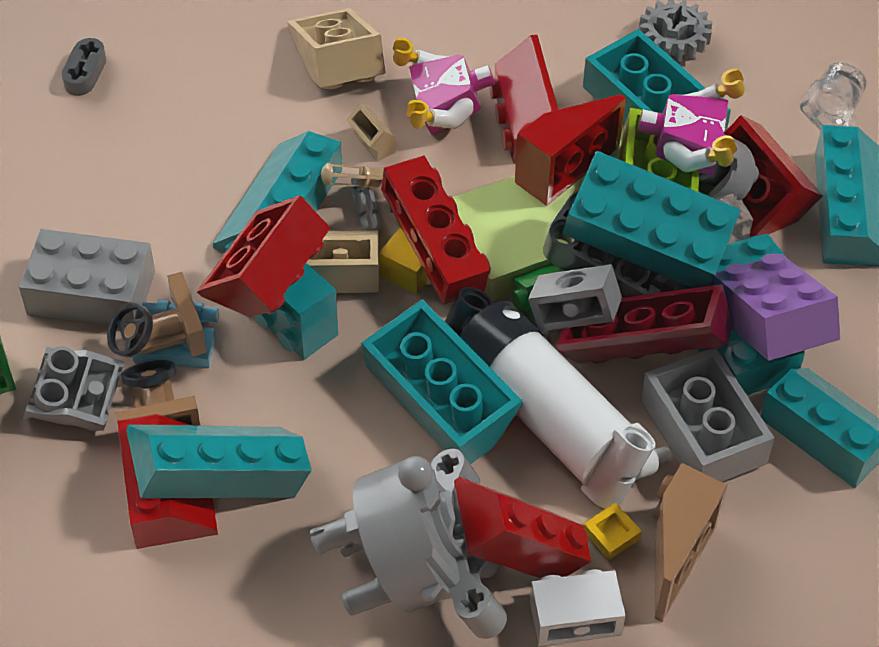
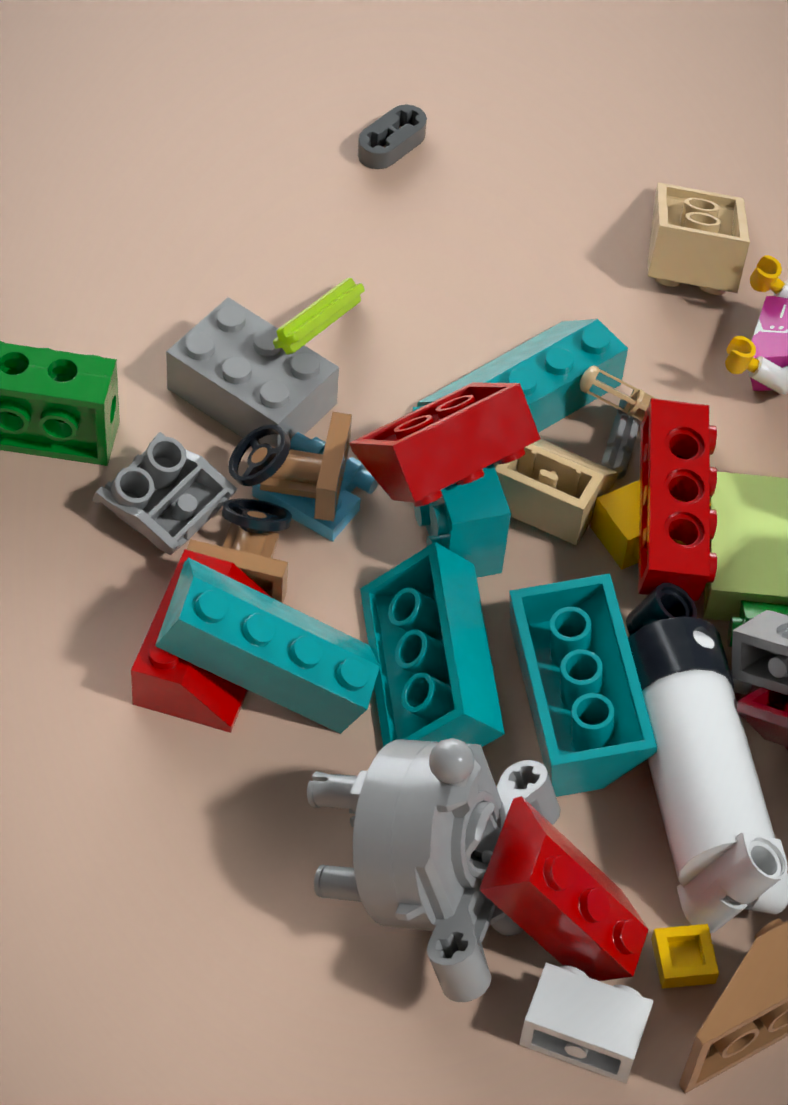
camera: 25 degrees right, 0 degrees up
(113, 214) = (318, 316): none -> lime axle
(323, 402) = (432, 651): none -> teal slope
(363, 120) = (678, 337): tan piece -> none

